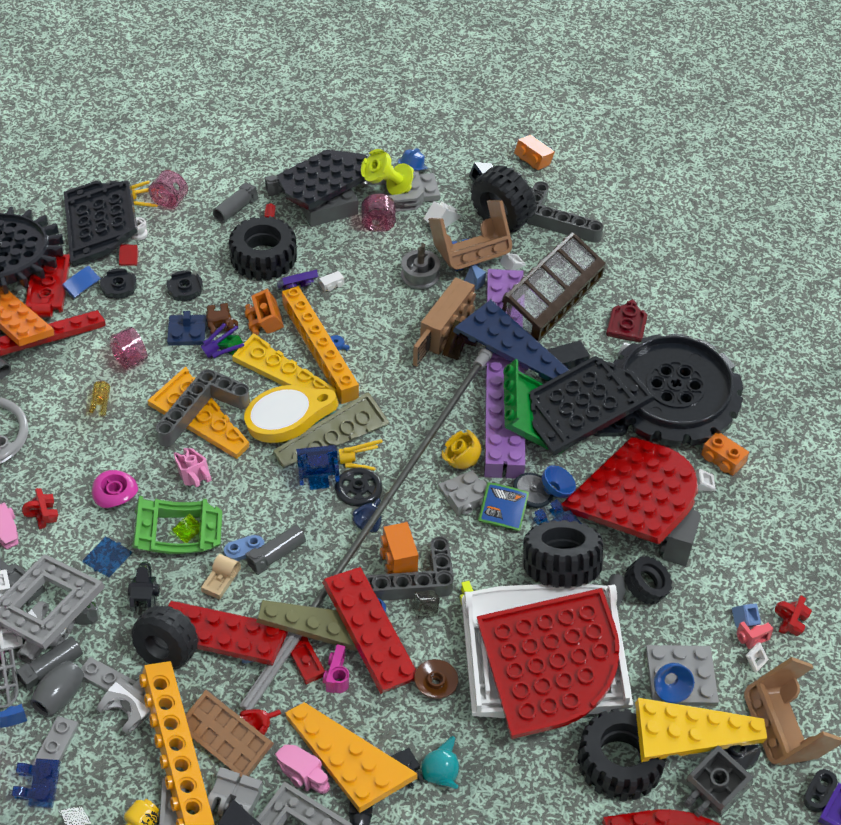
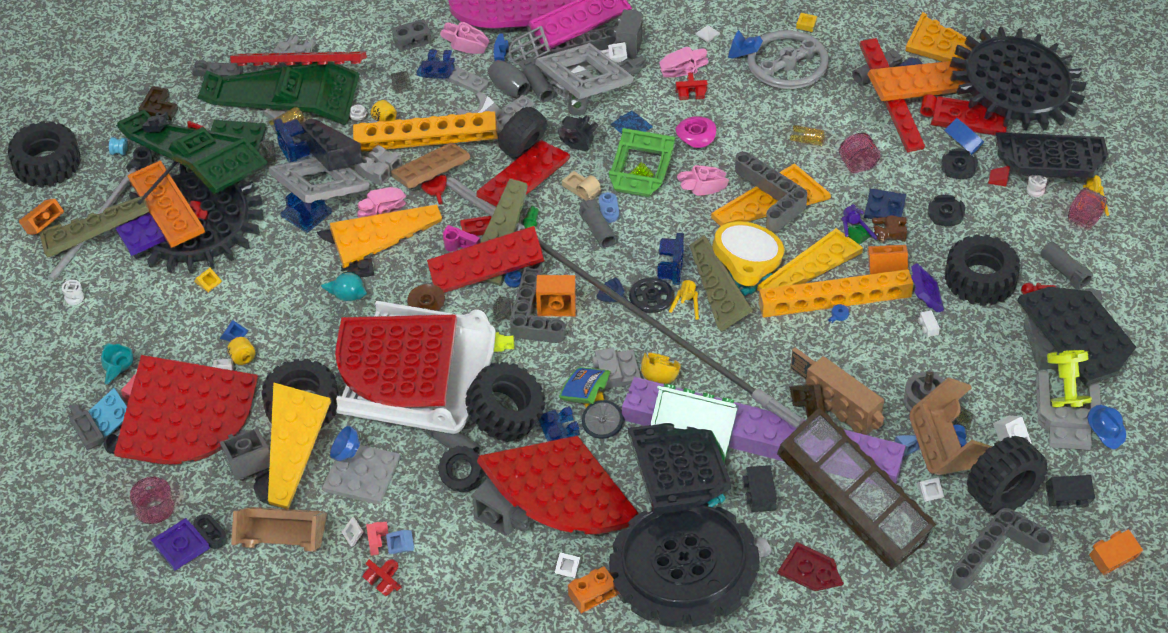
camera: 110 degrees right, 0 degrees up
(385, 216) = (1021, 373): clear pink piece -> none
(509, 340) = (774, 421): dark blue wing -> none
(560, 479) = (595, 424): blue piece -> none

